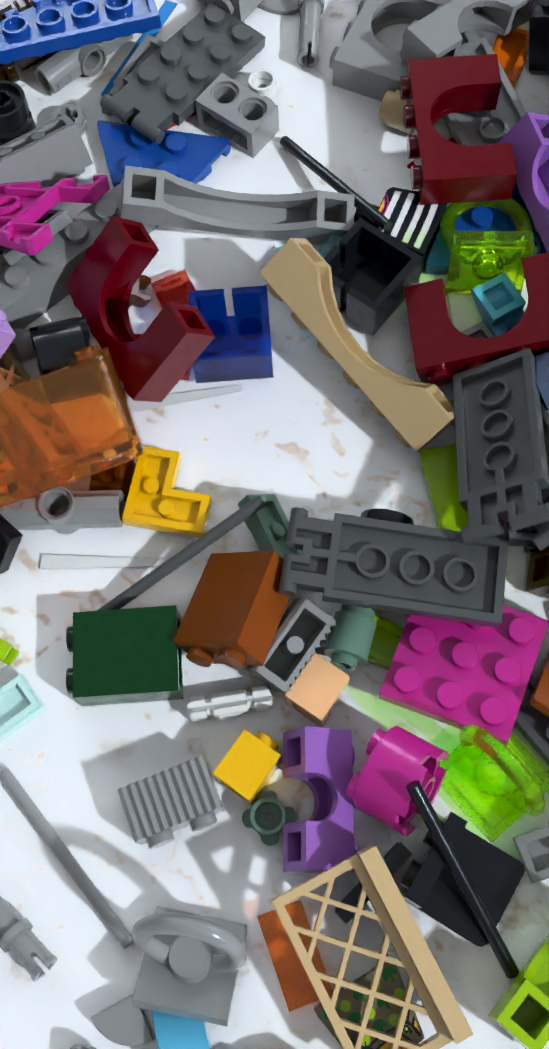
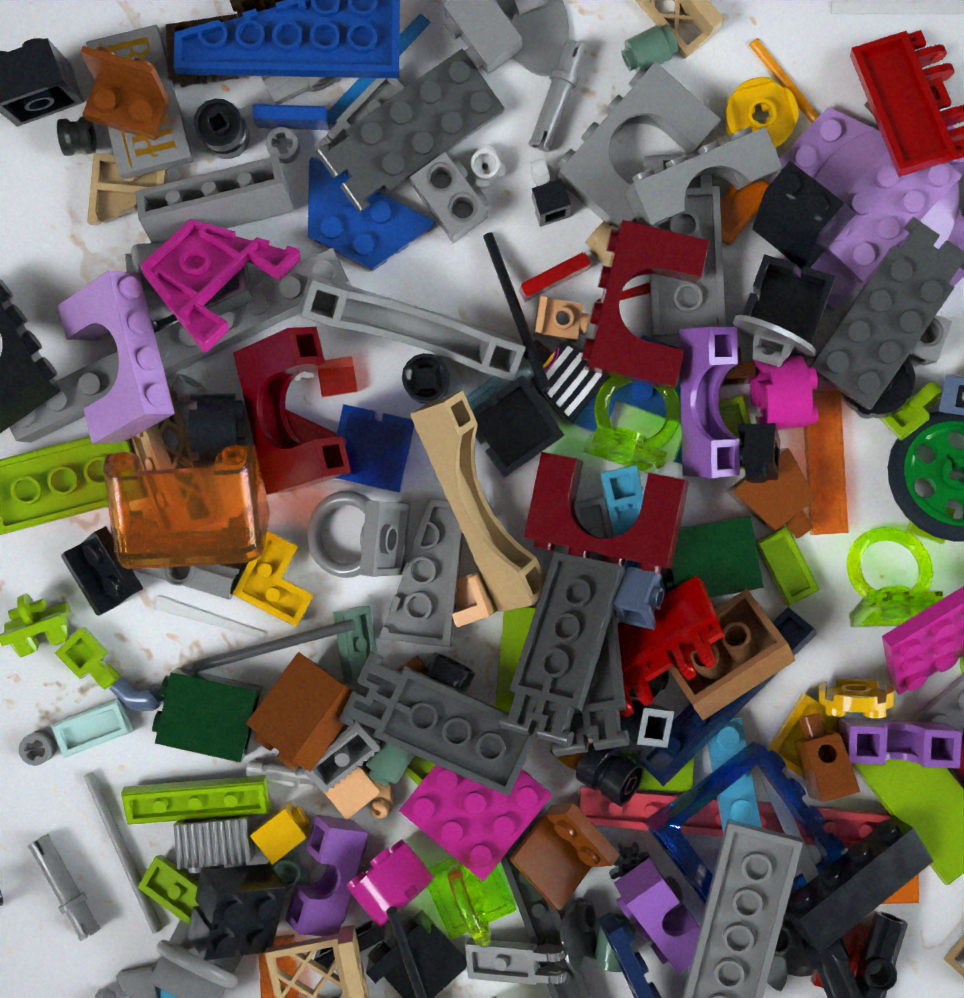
camera: 15 degrees right, 20 degrees up
(43, 667) = (137, 699): none -> sand blue arm
(82, 89) = (291, 117): none -> blue tile
(136, 758) = (196, 799): none -> lime tile
(142, 876) = (170, 887): none -> lime plate
(233, 866) = (243, 907): none -> black piece
(256, 250) = (426, 378): none -> black wheel
(265, 410) = (381, 537): none -> light grey tile
(331, 450) = (428, 582): none -> light grey wing
(332, 90) = (548, 197): none -> black piece
(355, 698) = (384, 801): none -> light nougat arm
(361, 148) = (554, 276): none -> red tile
(374, 177) = (548, 327): none -> light nougat brick
(383, 452) = (473, 600): none -> light nougat panel

